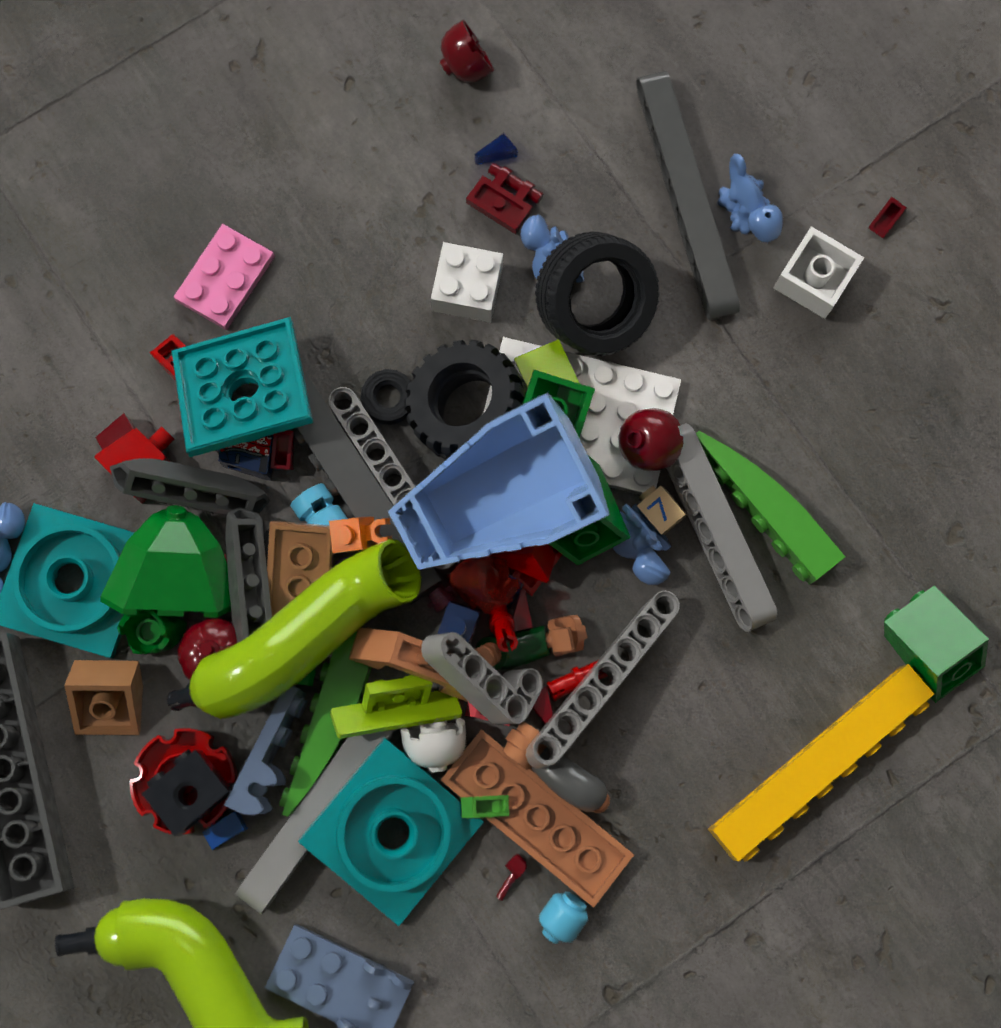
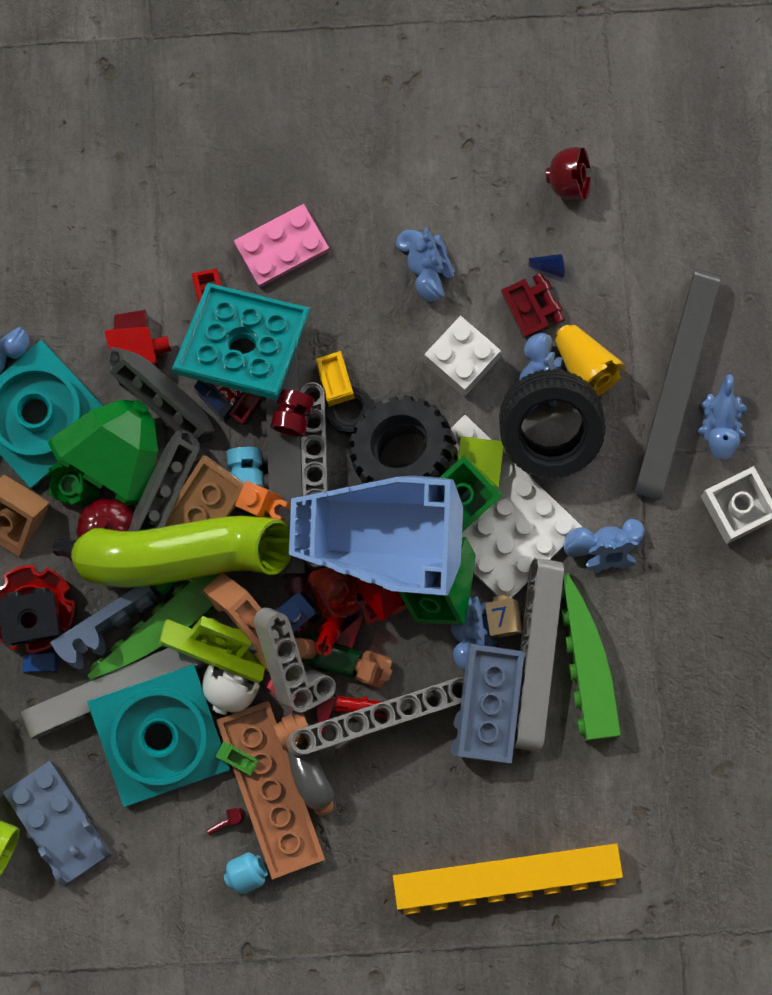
camera: 35 degrees right, 0 degrees up
(333, 423) = (292, 412): none -> dark red wheel
(355, 373) = (335, 378): none -> yellow tile
(376, 210) = (427, 259): none -> medium blue animal
(588, 213) = (588, 358): none -> yellow cone
(650, 439) = (524, 558): dark red cylinder -> none
(702, 603) = (489, 704): none -> sand blue hinge
(717, 380) = (608, 545): none -> medium blue animal
(936, 641) = (651, 842): slope -> none

